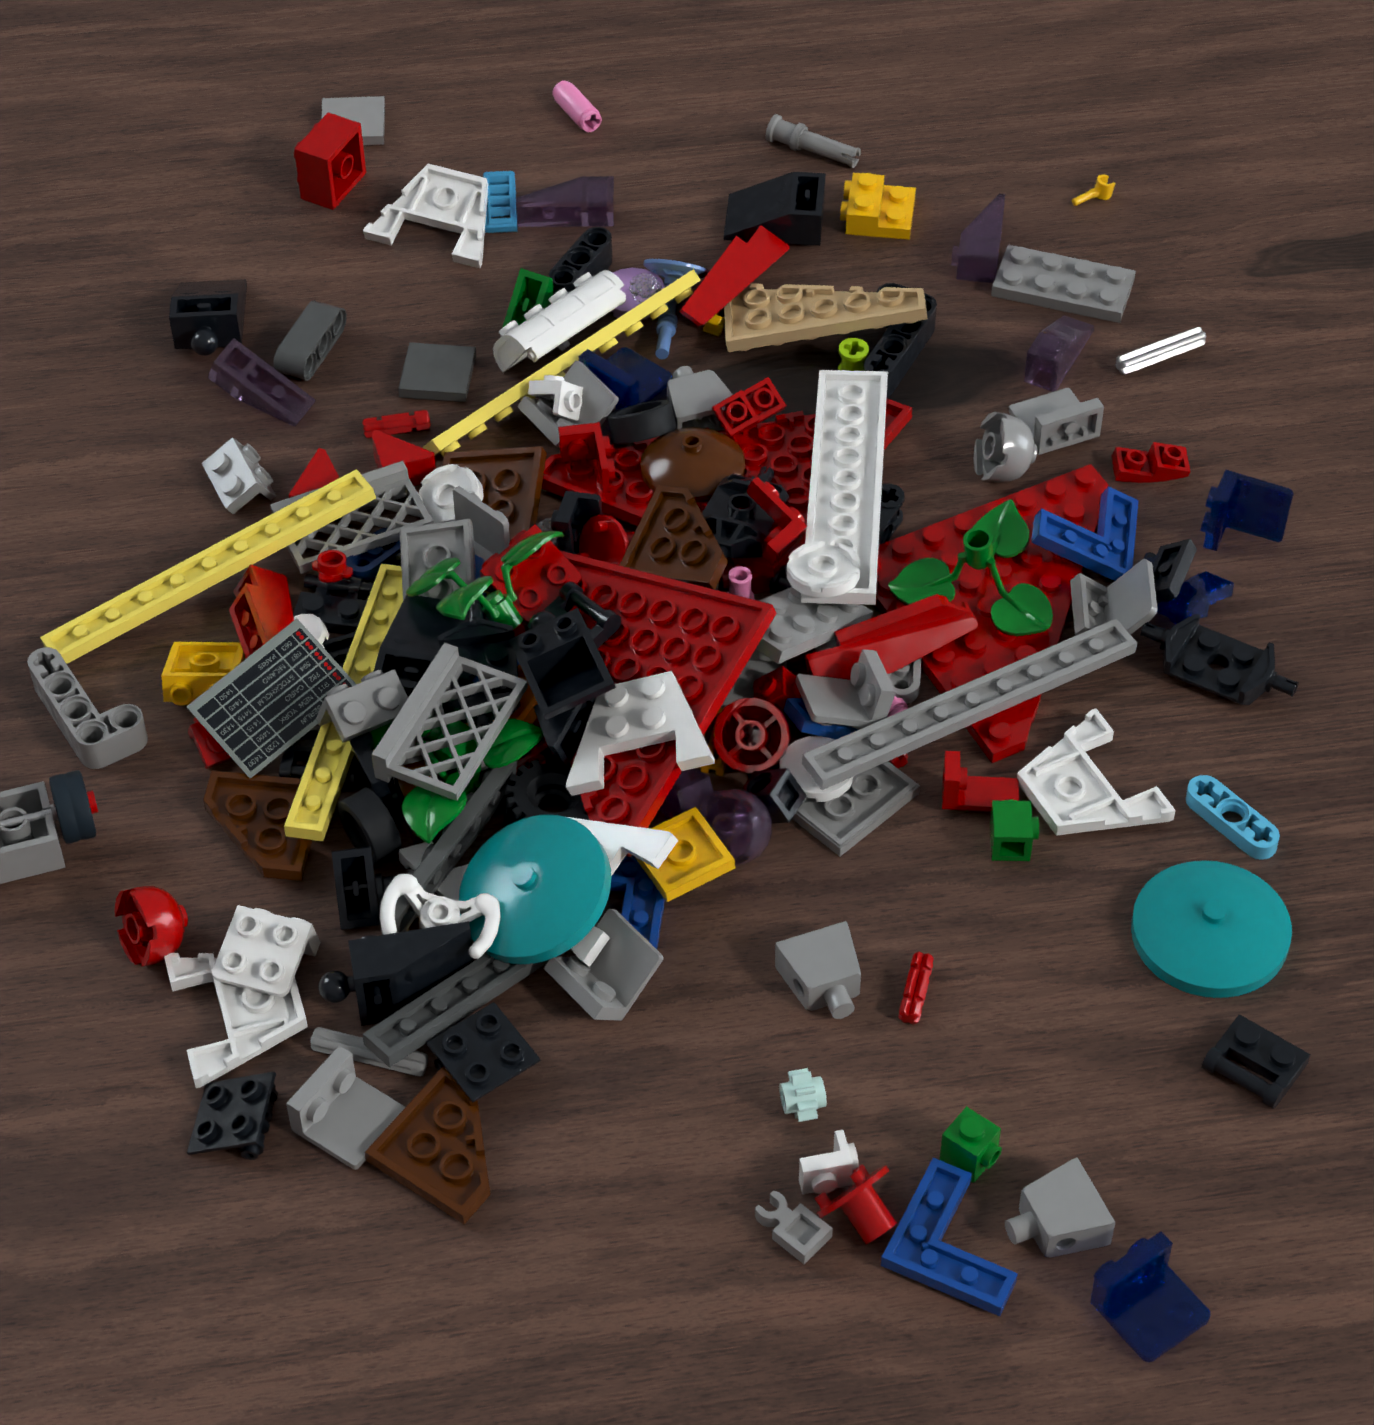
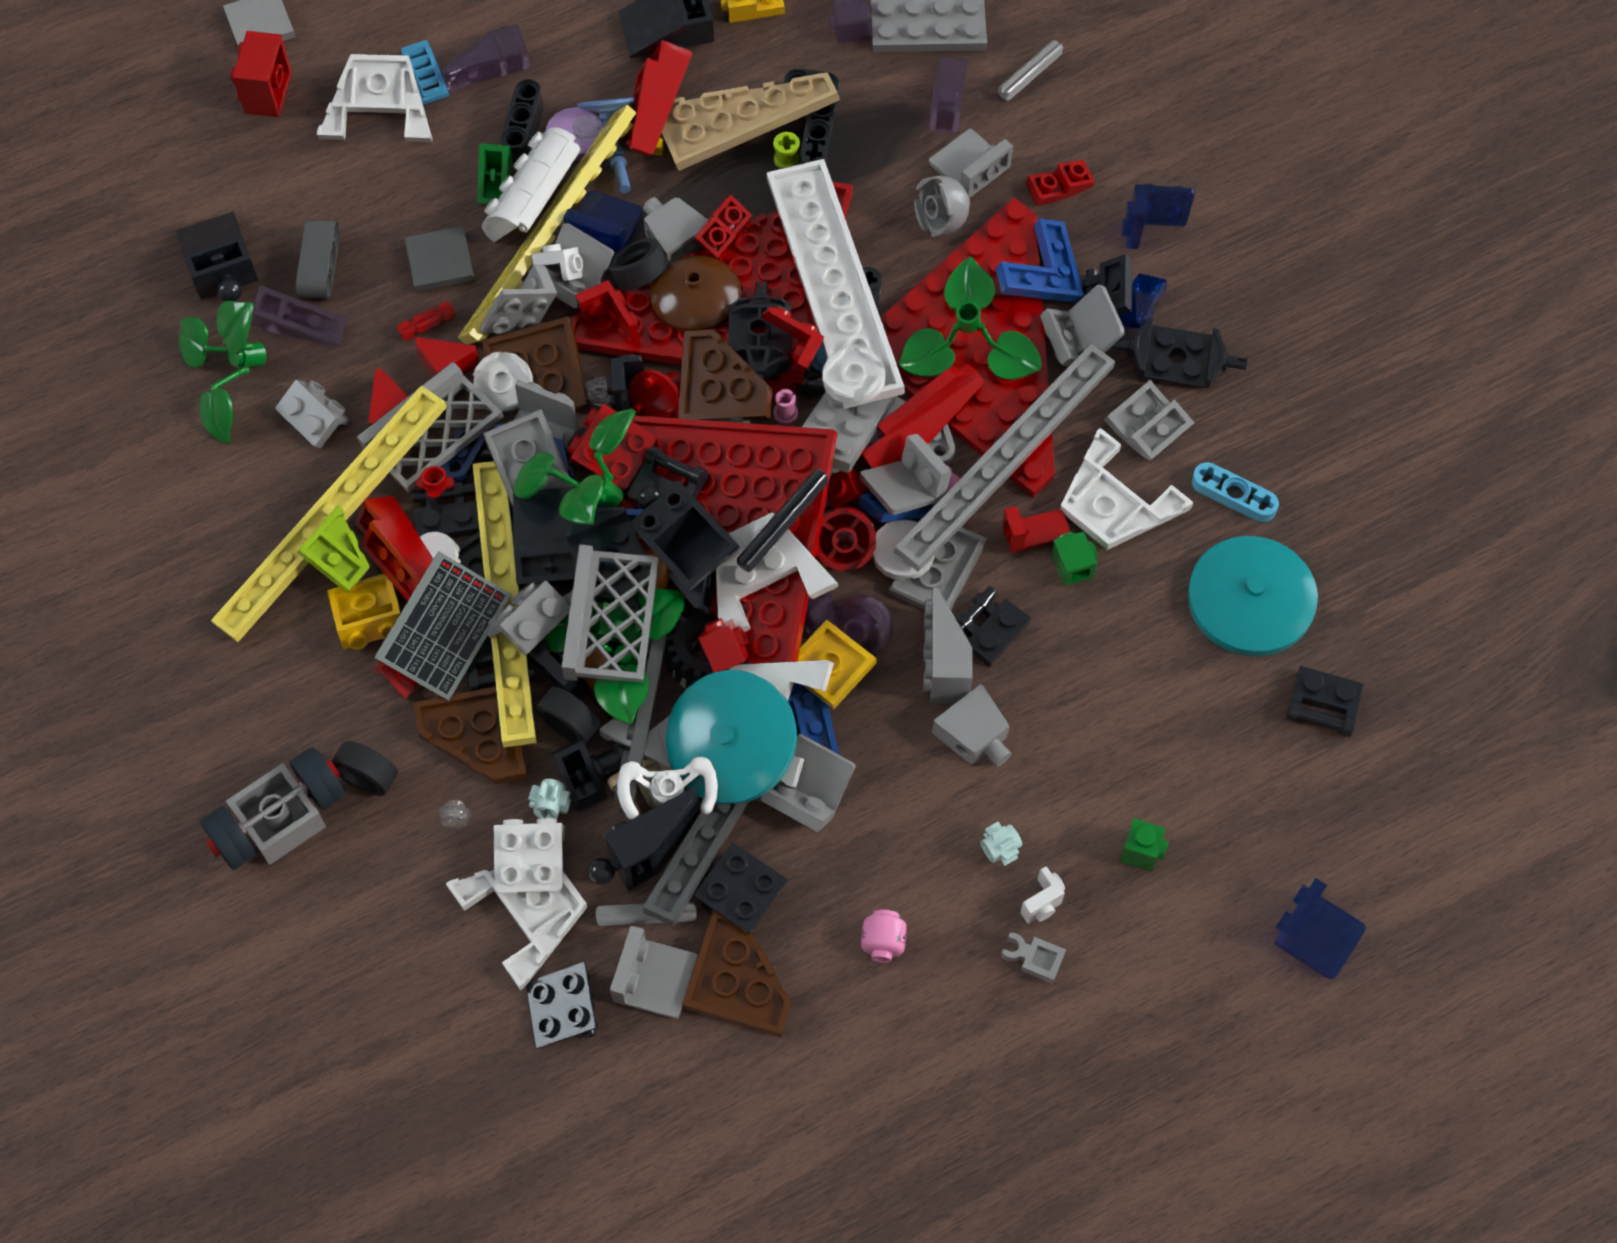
camera: 20 degrees left, 15 degrees up
(93, 736) = (271, 676): light grey beam -> none
(128, 815) = (364, 768): none -> black tyre
(151, 924) = (424, 861): red cylinder -> none
(189, 404) = (233, 326): none -> green plant
(196, 602) = (336, 551): none -> lime wing
(205, 892) = (454, 814): none -> clear plate
(314, 903) = (549, 799): none -> light aqua gear
(495, 424) = (521, 307): none -> light grey bracket
(564, 790) = (724, 644): none -> red brick
(626, 1151) = (883, 935): none -> bright pink head
(676, 677) = (782, 520): none -> black axle
(778, 792) = (880, 582): black brick -> none
(817, 881) = (945, 654): none -> light grey slope
(861, 1204) = (1078, 921): red piece -> none
(890, 884) = (997, 631): none -> black plate
(916, 988) = (1049, 719): red axle -> none
(922, 1256) = (1140, 950): blue plate -> none
(1062, 1213) = (1230, 879): light grey torso -> none
(1158, 719) = (1148, 421): none -> light grey slope

